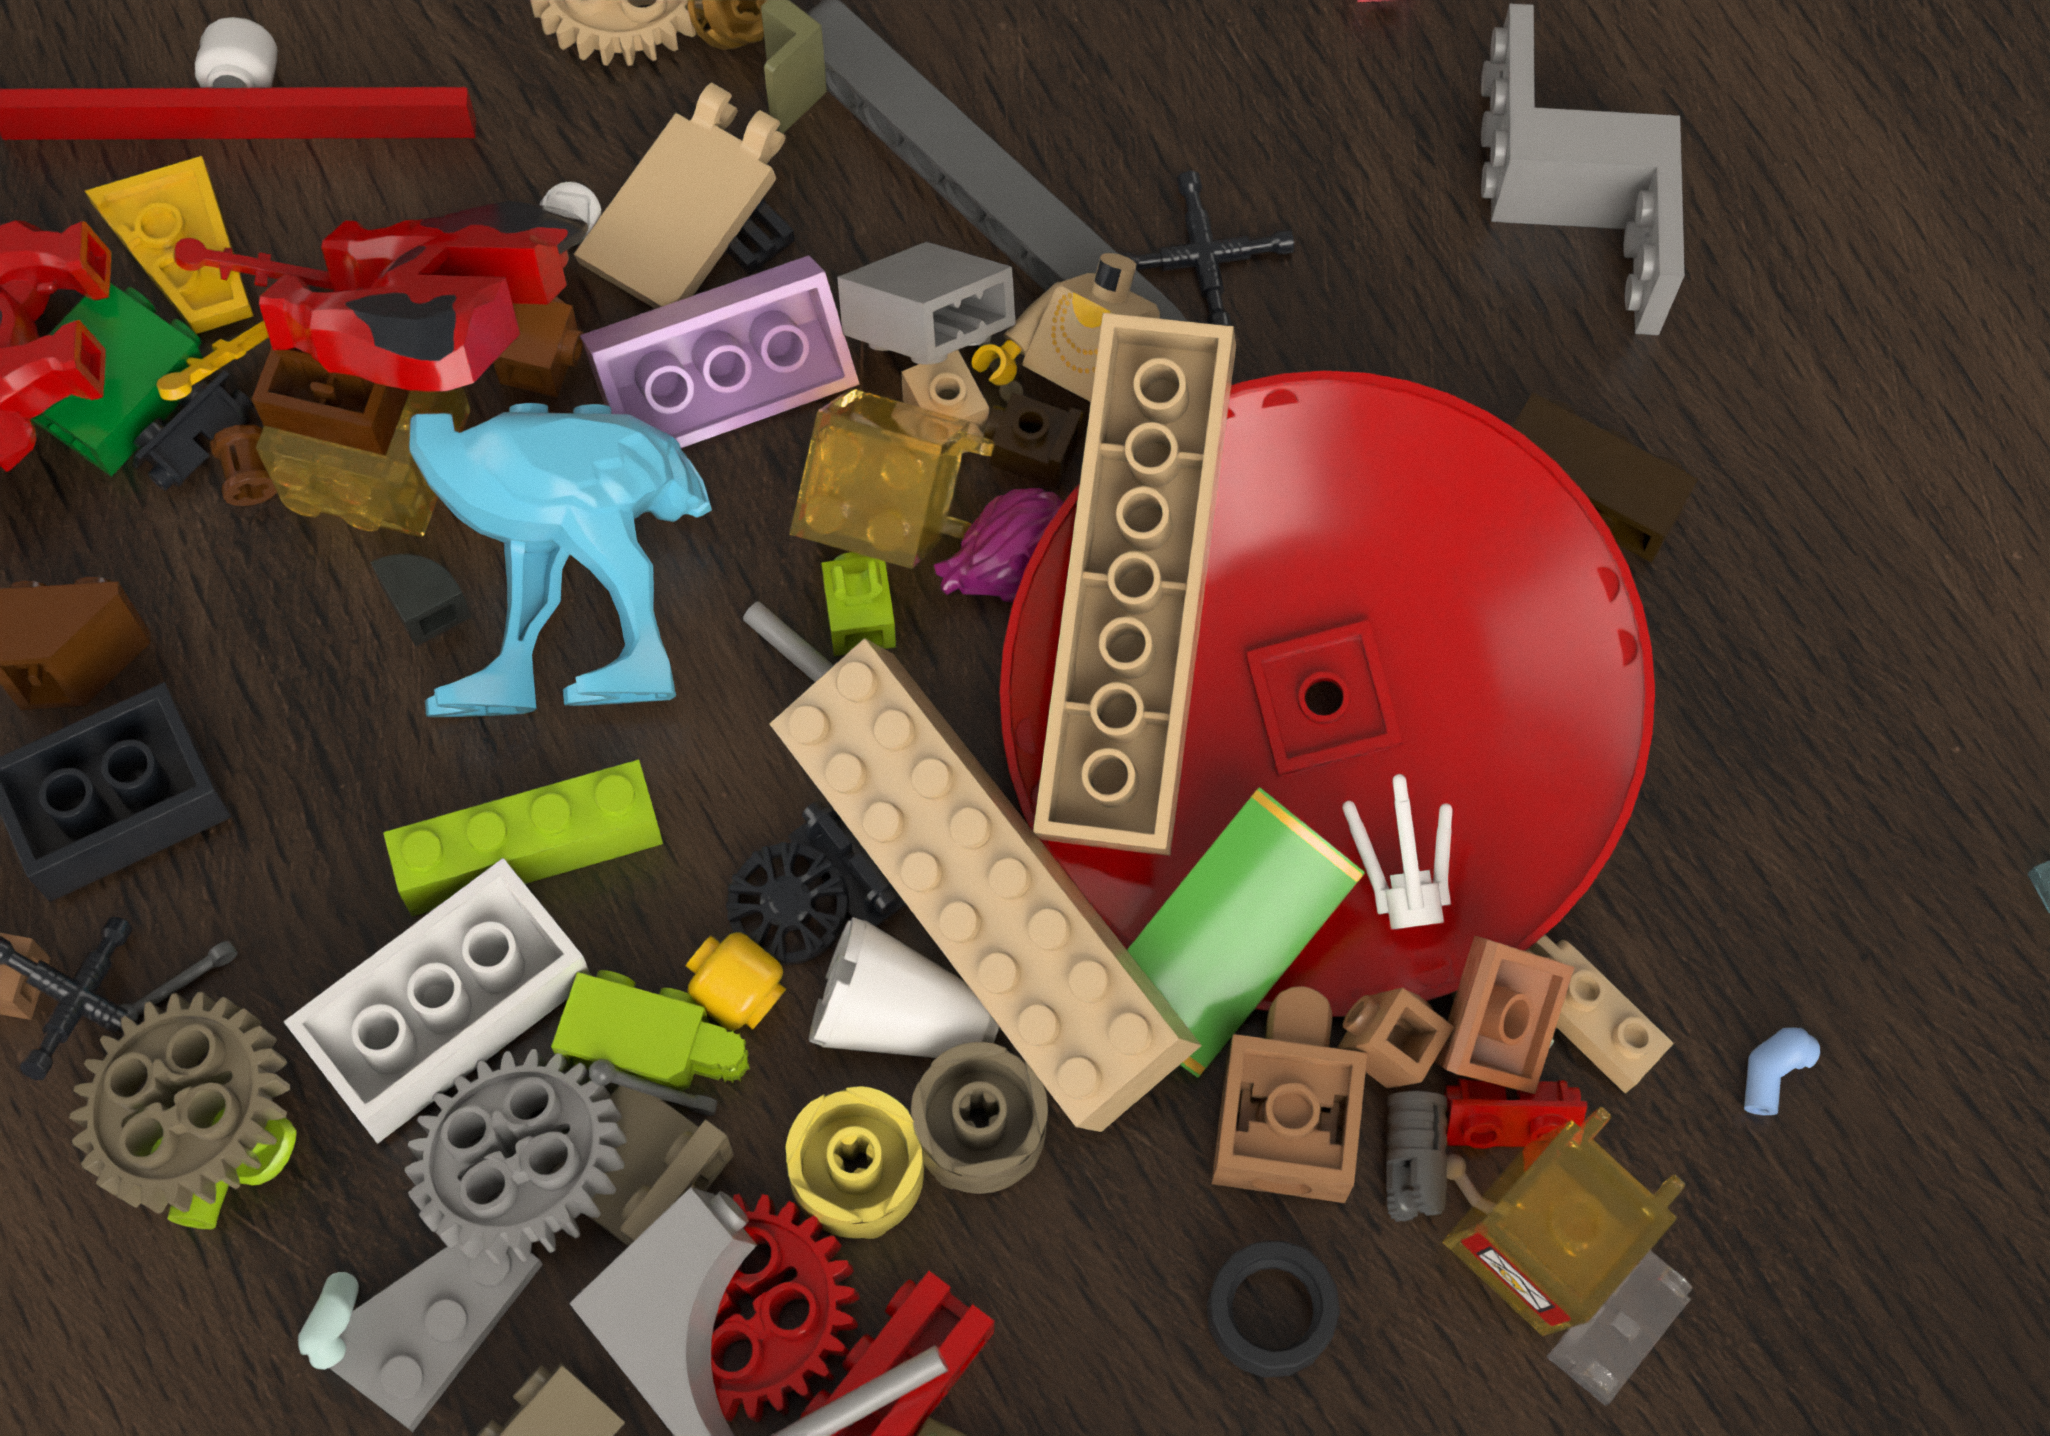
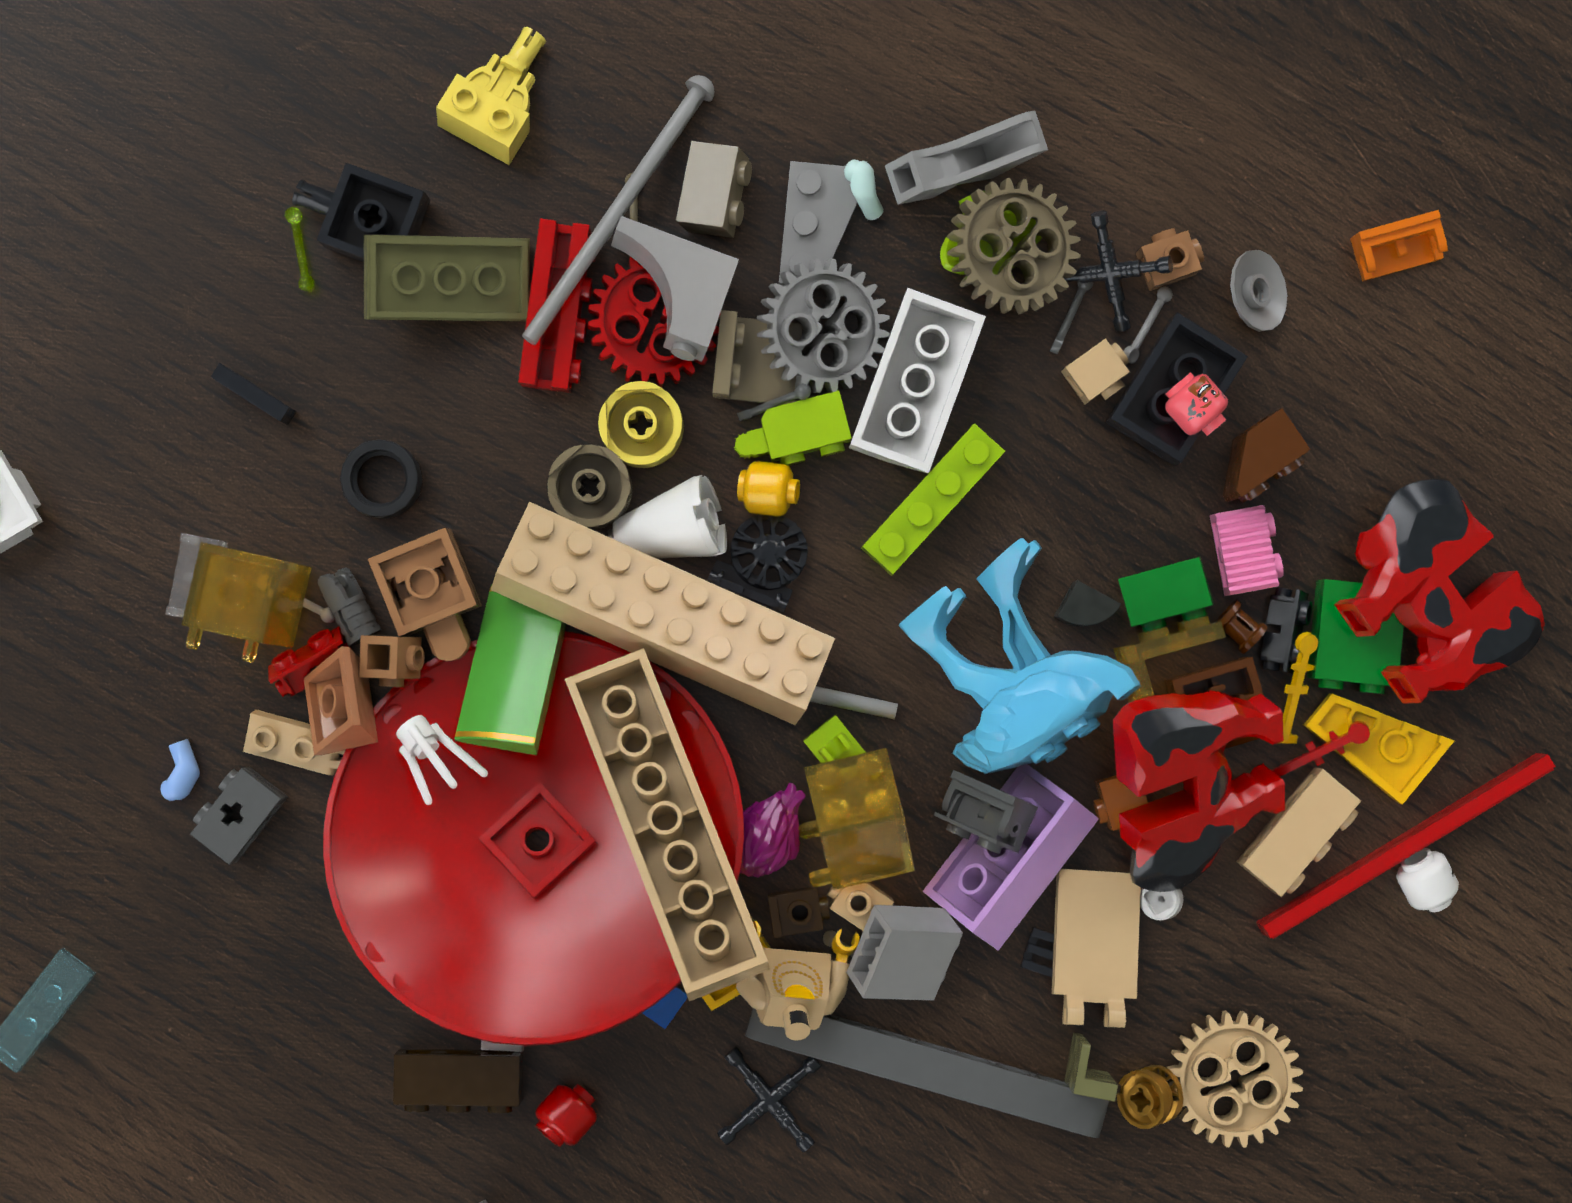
camera: 150 degrees right, 20 degrees up
(87, 729) = (1196, 404): none -> coral head
(128, 887) = (1164, 295): none -> light grey hinge
(156, 1267) = (968, 159): none -> light grey arch
(170, 548) = (1246, 550): none -> bright pink brick
(192, 881) = (1098, 371): none -> tan brick
(304, 550) = (1166, 593): none -> green brick
(364, 183) = (1300, 832): none -> tan brick
(716, 410) = (986, 812): none -> dark grey hinge
(1476, 360) = (566, 1115): none -> red head
(1746, 934) = (233, 838): none -> dark grey brick

